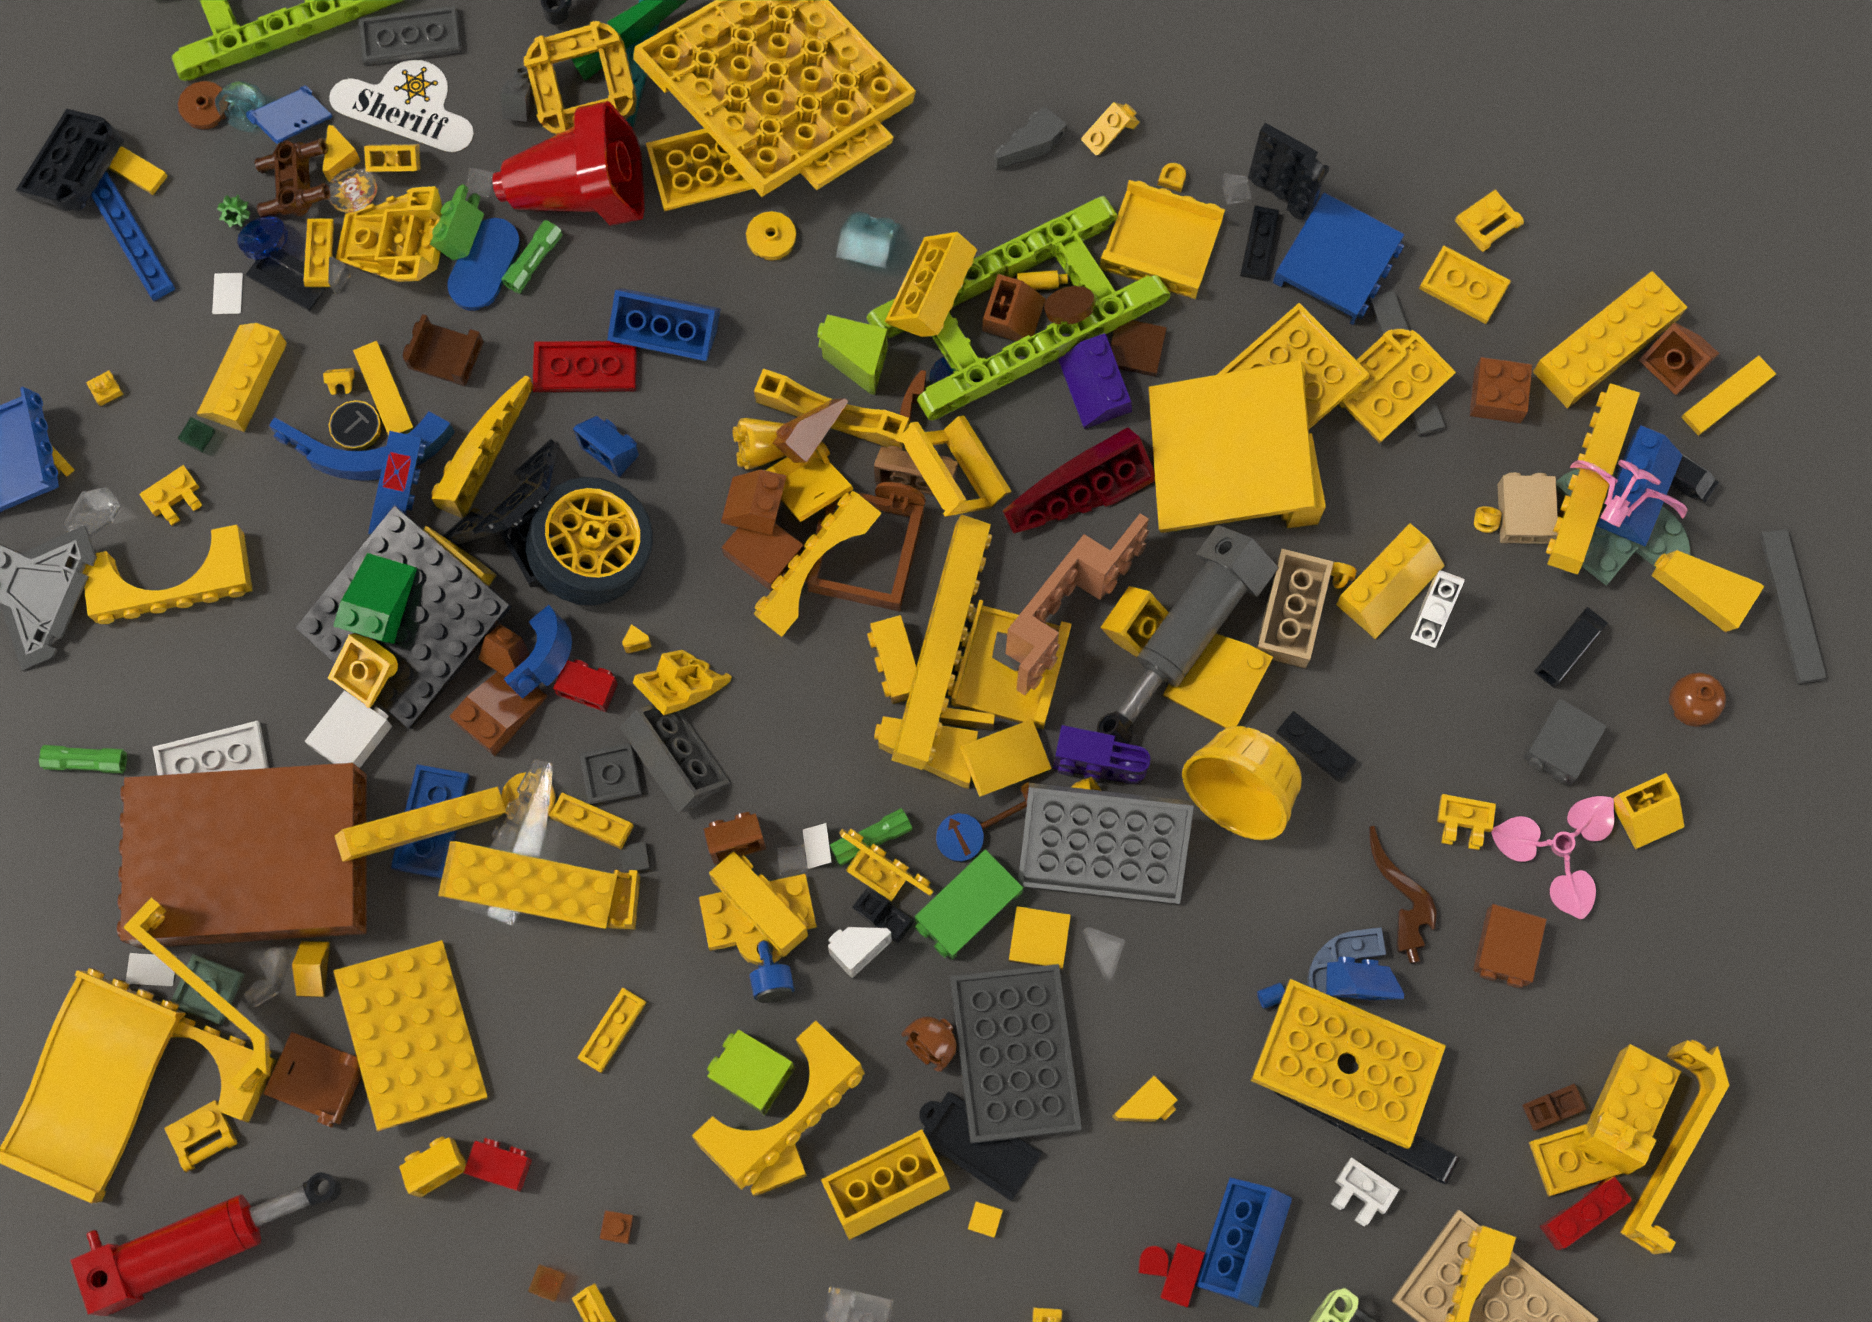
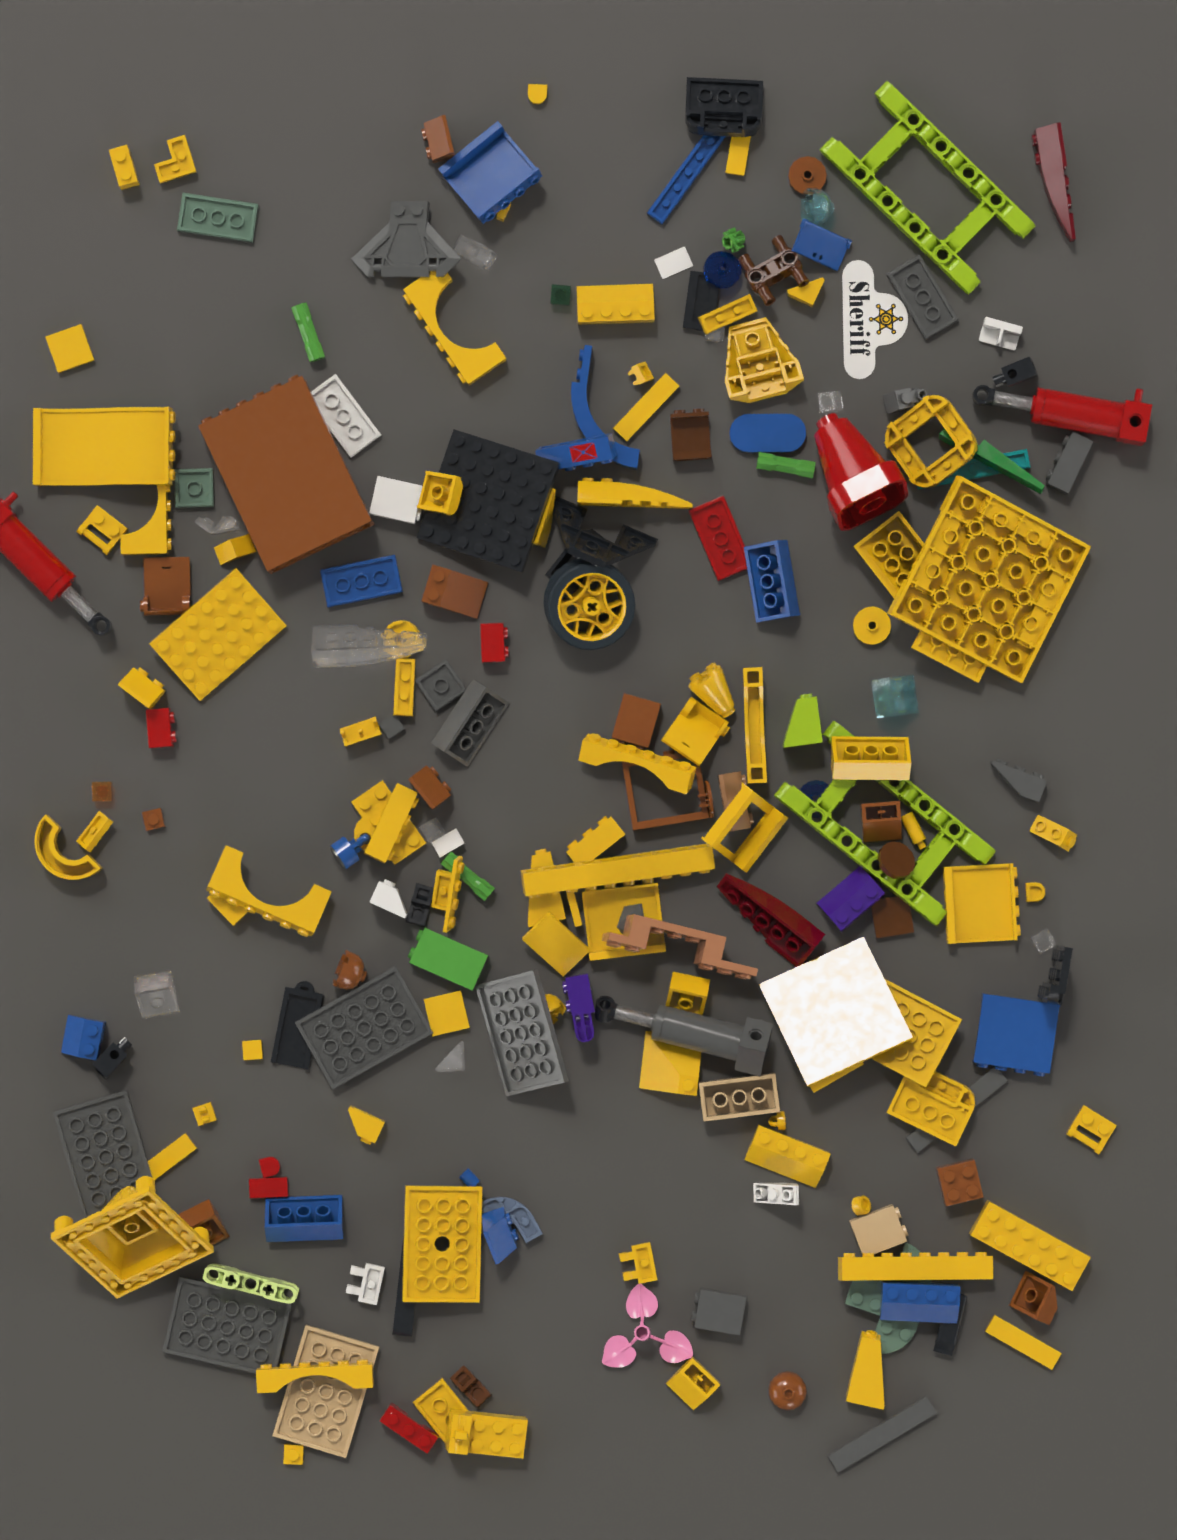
camera: 70 degrees right, 15 degrees up
(104, 388) = (568, 213): yellow tile -> none
(148, 970) = (192, 444): white sticker -> none
(151, 917) = (158, 551): yellow panel -> none
(169, 491) = (513, 295): yellow plate -> none
(352, 189) = (785, 314): clear tile -> none
(355, 425) = (612, 400): black tile -> none
(376, 598) = (489, 480): green slope -> none
(392, 157) = (818, 333): yellow brick -> none
(419, 824) = (351, 582): yellow brick -> none
(457, 224) = (787, 404): bright green hinge -> none
(503, 650) = (491, 582): dark orange slope -> none
(527, 884) = (340, 670): yellow brick -> none
(548, 656) = (503, 611): blue arch -> none
(606, 444) = (666, 582): blue slope -> none
(611, 1030) = (274, 761): yellow tile -> none
(635, 640) = (537, 662): yellow slope -> none
(679, 682) = (520, 704): yellow slope -> none
(750, 1071) = (283, 862): lime slope -> none
(754, 501) = (663, 702): dark orange slope -> none
(803, 434) = (728, 716): slope -> none
(885, 1184) = (247, 978): yellow slope -> none
(915, 389) = (793, 777): dark orange slope -> none
(962, 836) = (494, 934): blue piece -> none
(1244, 782) = (598, 1109): yellow piece -> none
(1259, 243) = (1007, 972): black tile -> none
(1316, 746) = (650, 1146): black plate -> none
(1423, 906) = (569, 1256): reddish brown piece -> none
(1464, 284) = (1034, 1129): yellow tile -> none
(1509, 946) = (564, 1321): dark orange brick -> none
(1570, 647) = (790, 1293): black piece -> none
(1618, 507) = (901, 1295): bright pink plant -> none
(1712, 1086) = (475, 1474): yellow panel -> none

